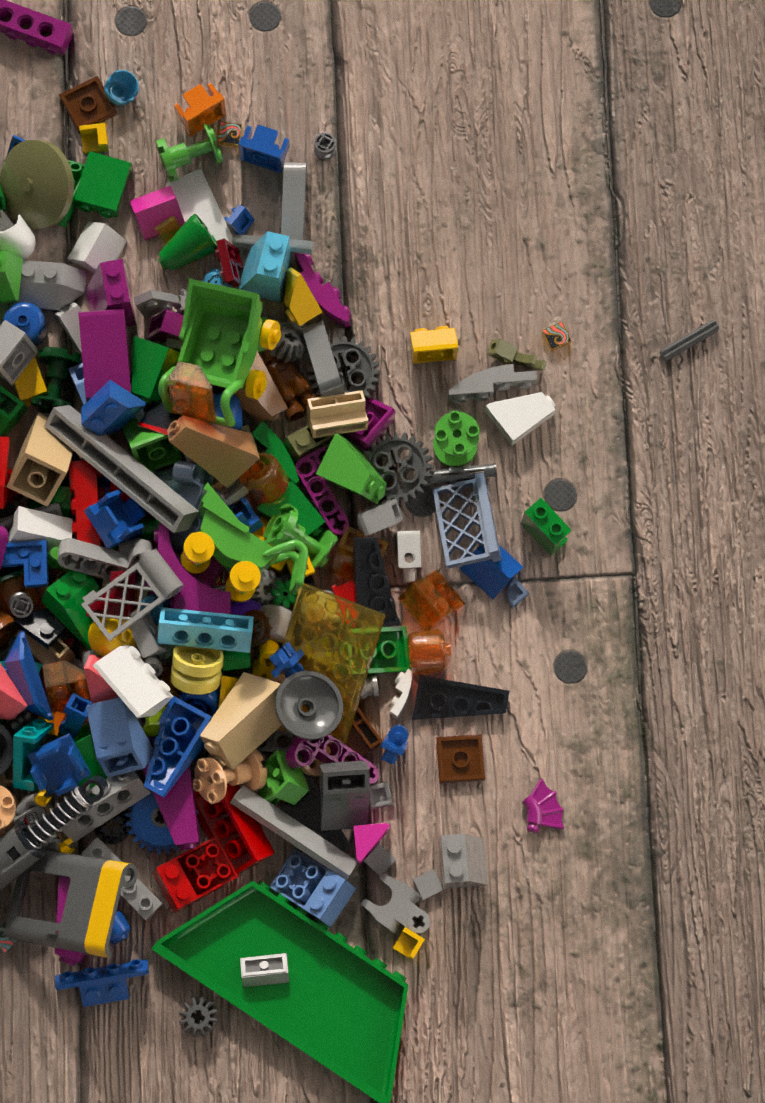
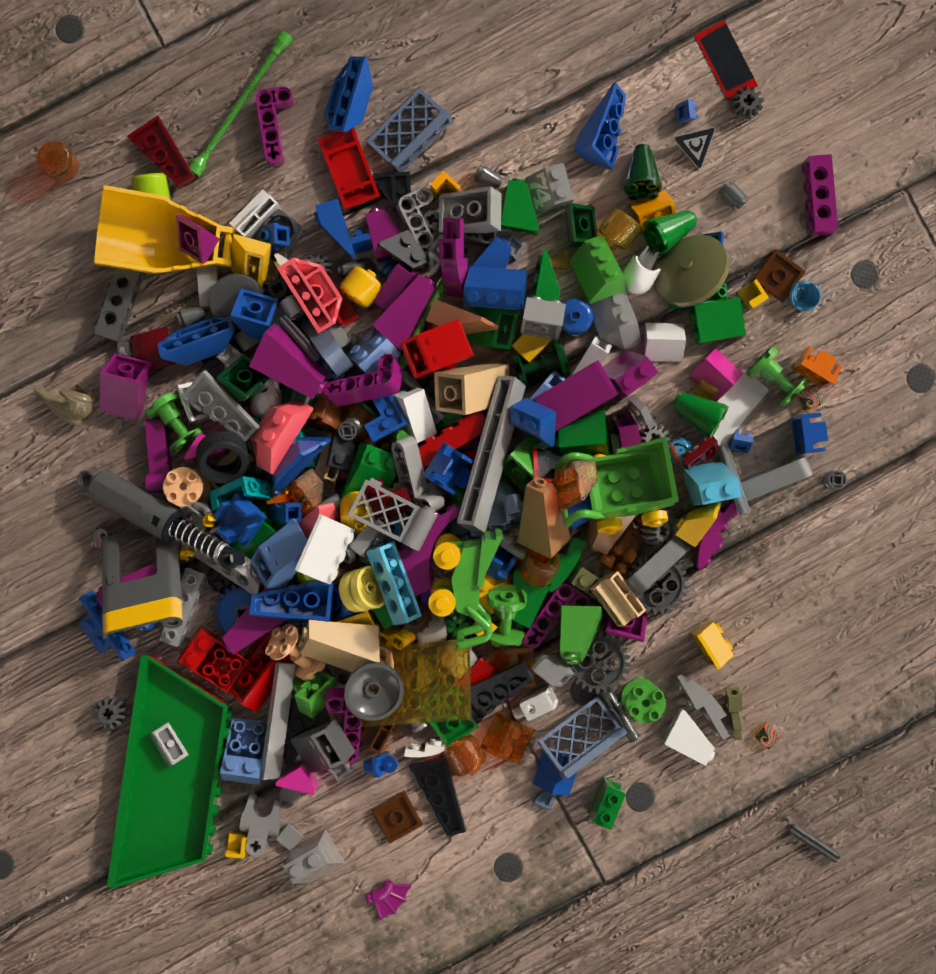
camera: 65 degrees right, 10 degrees up
(286, 659) = (401, 656): blue hips -> none

